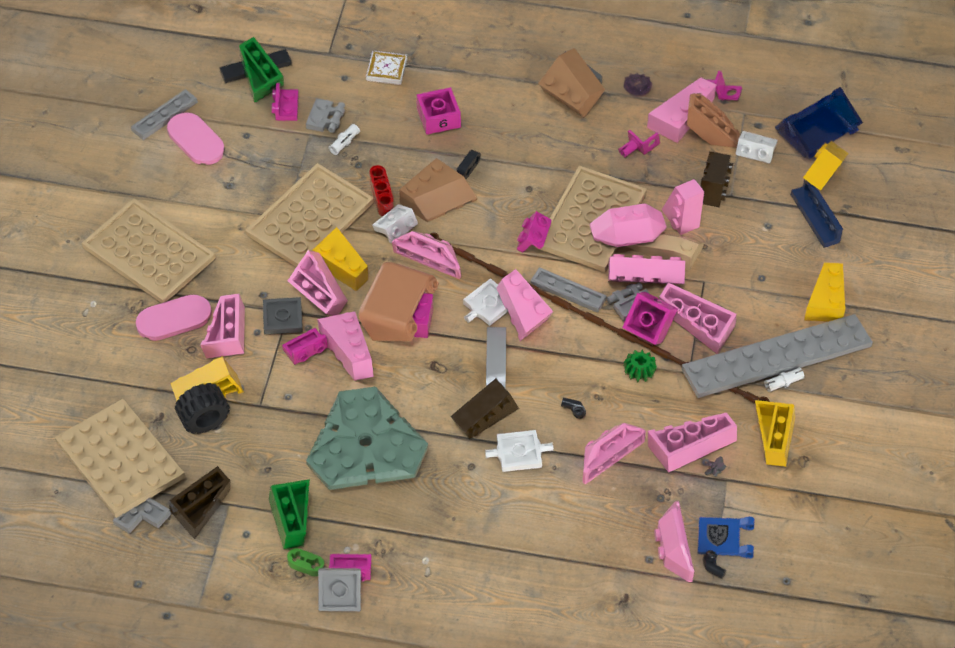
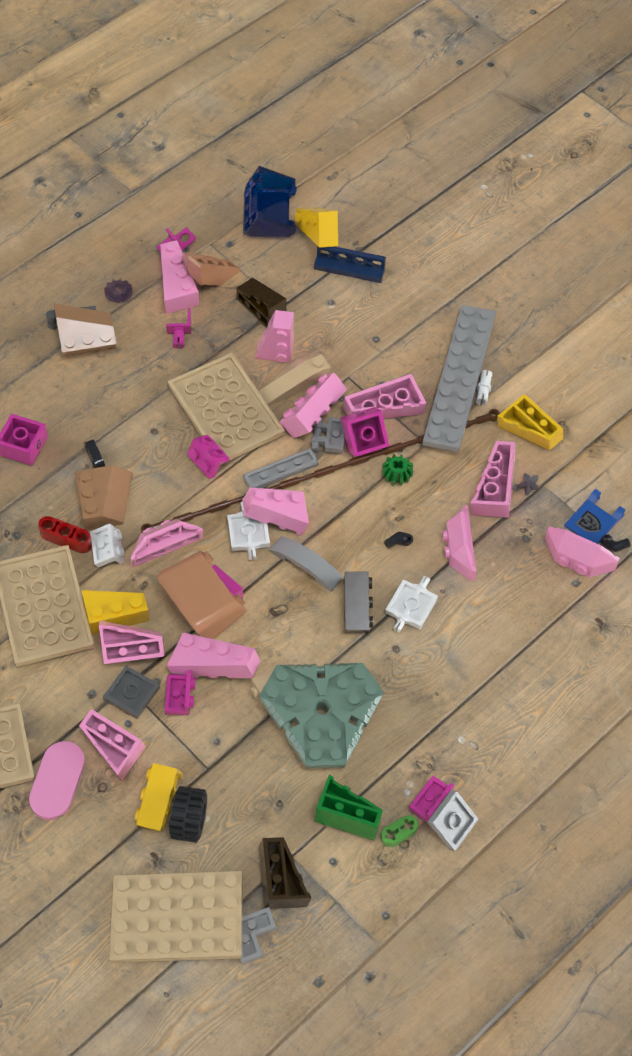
camera: 55 degrees left, 5 degrees up
(628, 225) = (262, 389): bright pink wedge -> none
(756, 147) = (253, 257): white bracket -> none
(828, 296) = (432, 307): yellow wedge -> none

